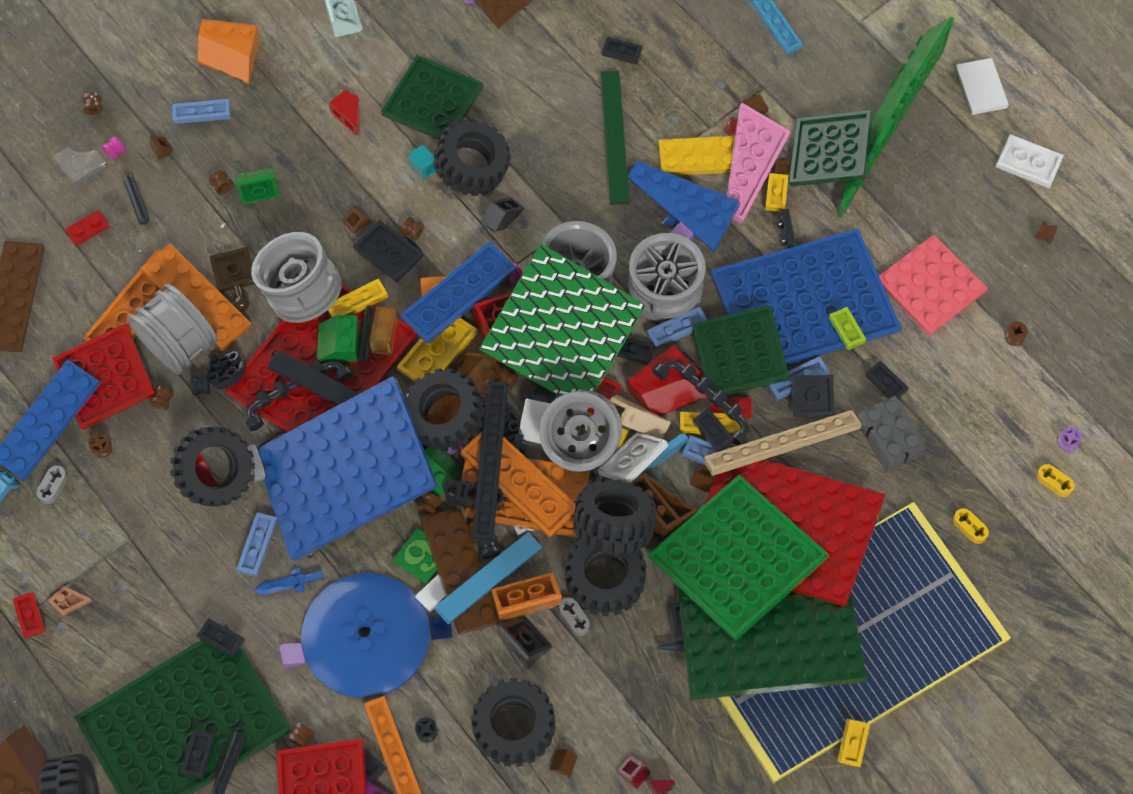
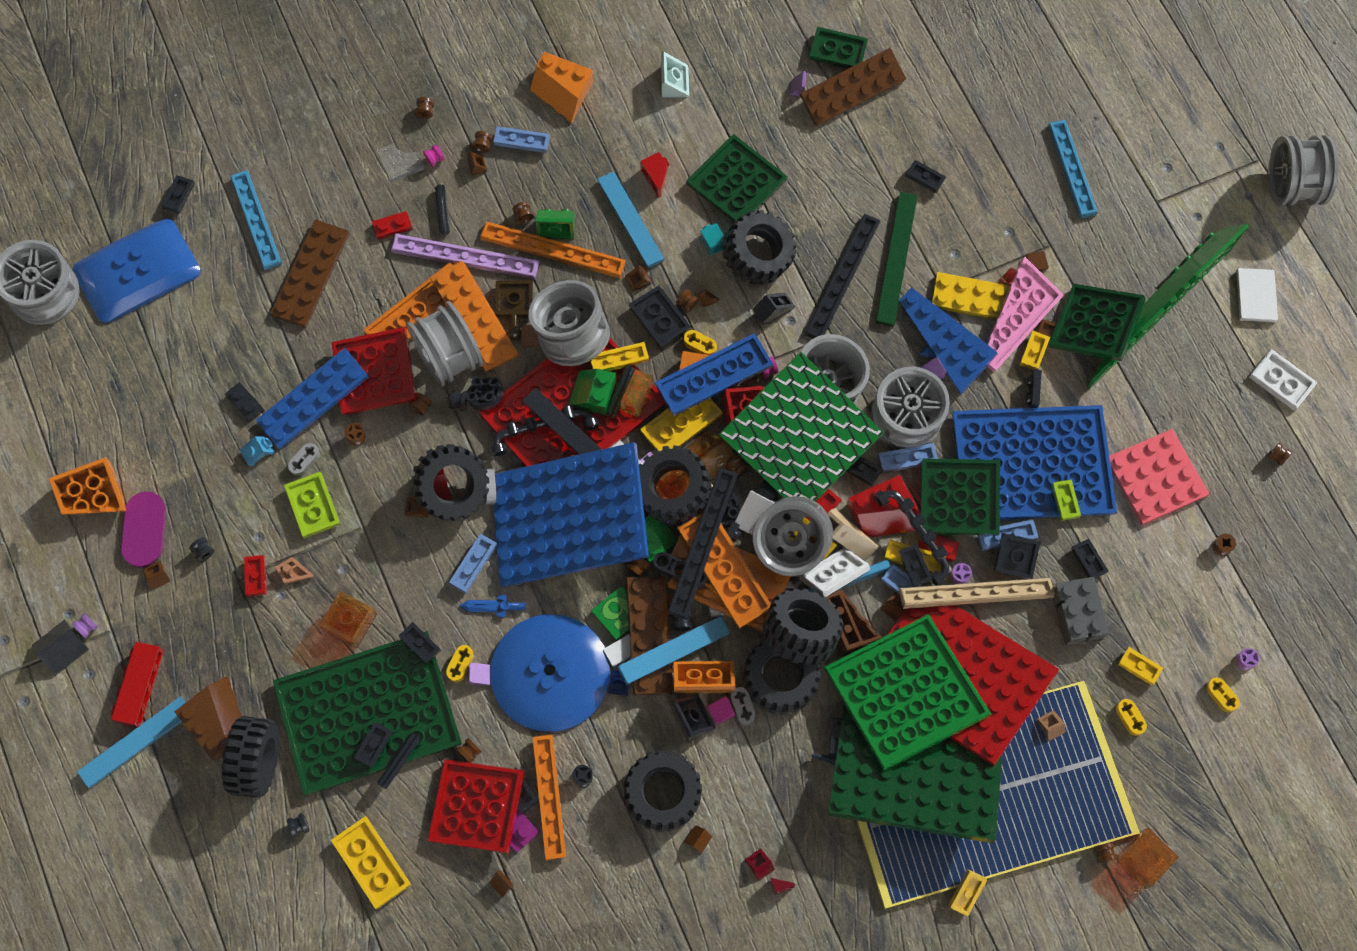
camera: 10 degrees right, 5 degrees up
(72, 528) = (312, 505): none -> lime plate
(139, 633) = (348, 619): none -> clear orange brick
(161, 123) = (482, 141): none -> reddish brown wheel
(181, 239) = (472, 257): none -> lavender tile
(182, 505) = (414, 509): none -> reddish brown slope
(258, 303) = (528, 336): none -> reddish brown slope
(260, 212) = (553, 249): none -> orange tile
(273, 650) = (464, 665): none -> yellow beam
(333, 163) = (630, 220): none -> dark azure tile
(432, 221) = (707, 298): none -> reddish brown slope
(436, 266) = (699, 343): none -> yellow beam
(553, 626) = (721, 710): none -> dark pink slope
(565, 166) = (842, 277): none -> black tile
(763, 424) = (963, 571): none -> medium lavender wheel
(893, 554) = (1051, 725): none -> medium nougat slope
(966, 473) = (1140, 666): none -> yellow plate
(982, 666) = (1105, 853): none -> reddish brown wheel
(1024, 660) = (1147, 858): none -> clear orange brick

